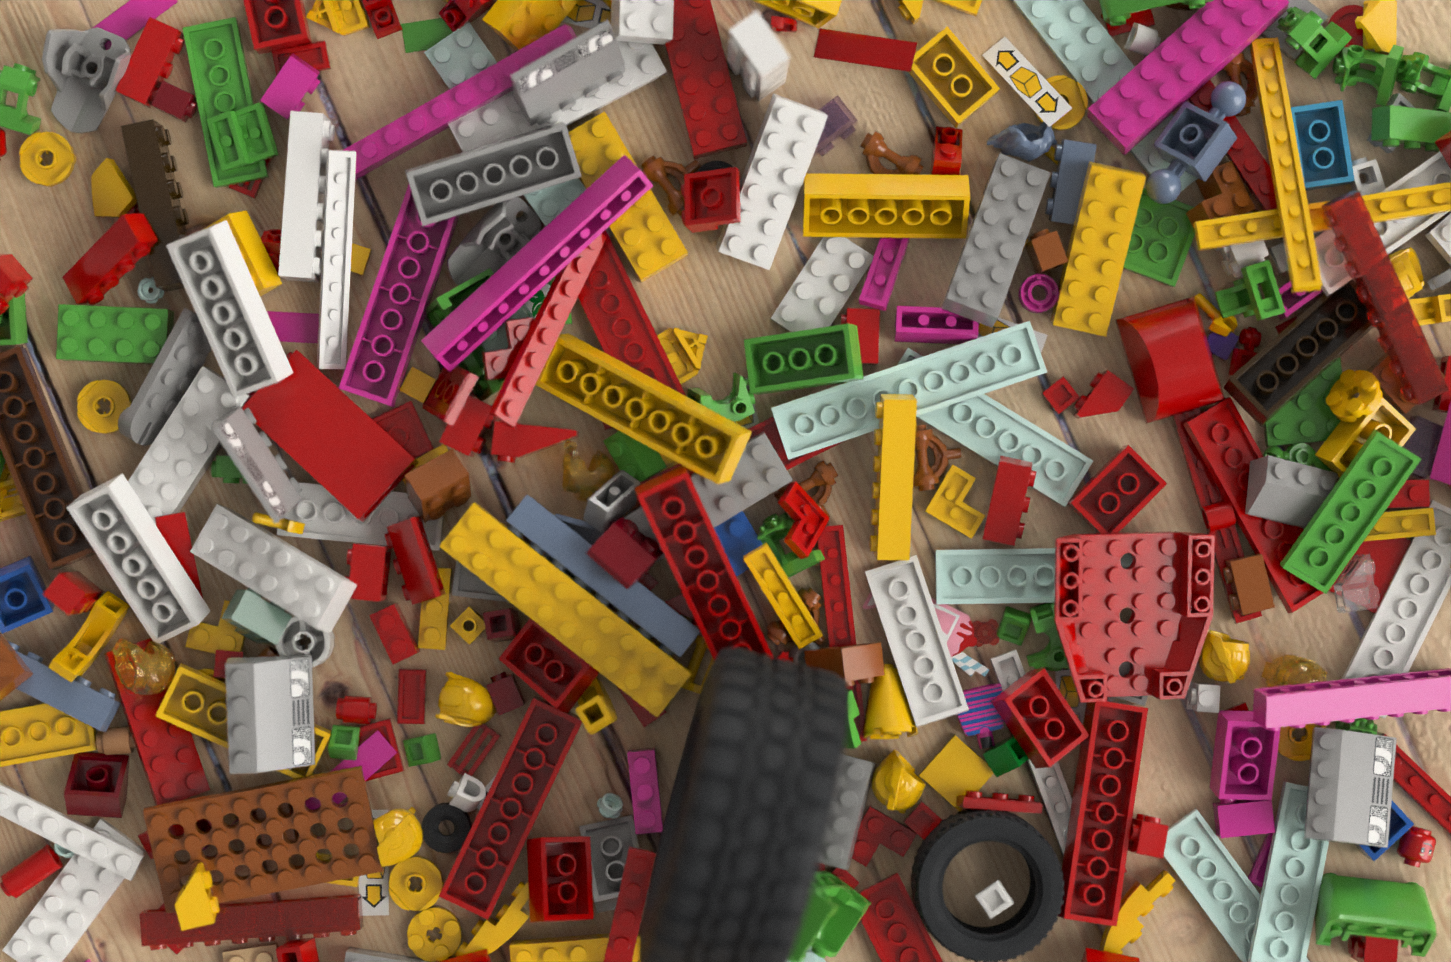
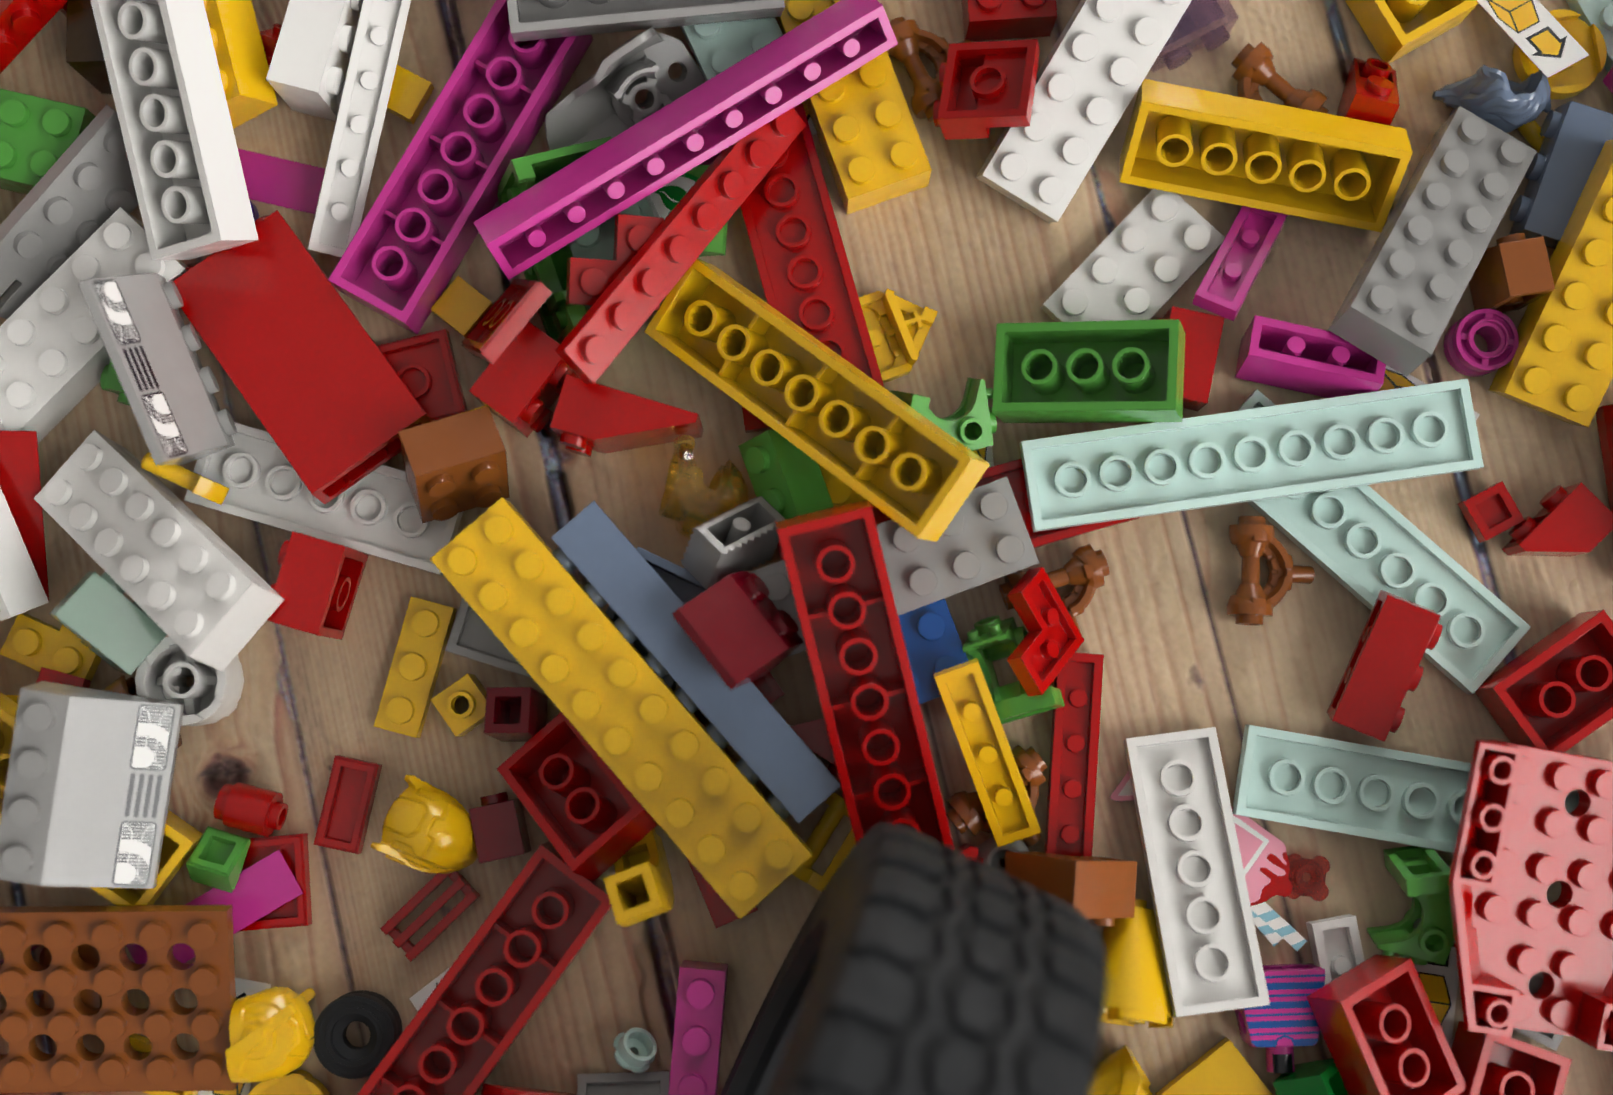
camera: 10 degrees right, 5 degrees down
(144, 294) = (62, 81): light aqua plate -> none
(395, 633) = (339, 695): red brick -> none
(414, 560) = (394, 579): red slope -> none
(422, 750) = (347, 896): bright green slope -> none
(466, 793) = (401, 984): white plate -> none
(894, 476) = (1205, 590): yellow brick -> none
(948, 505) = (1280, 656): yellow plate -> none
(1013, 625) = (1355, 874): bright green slope -> none

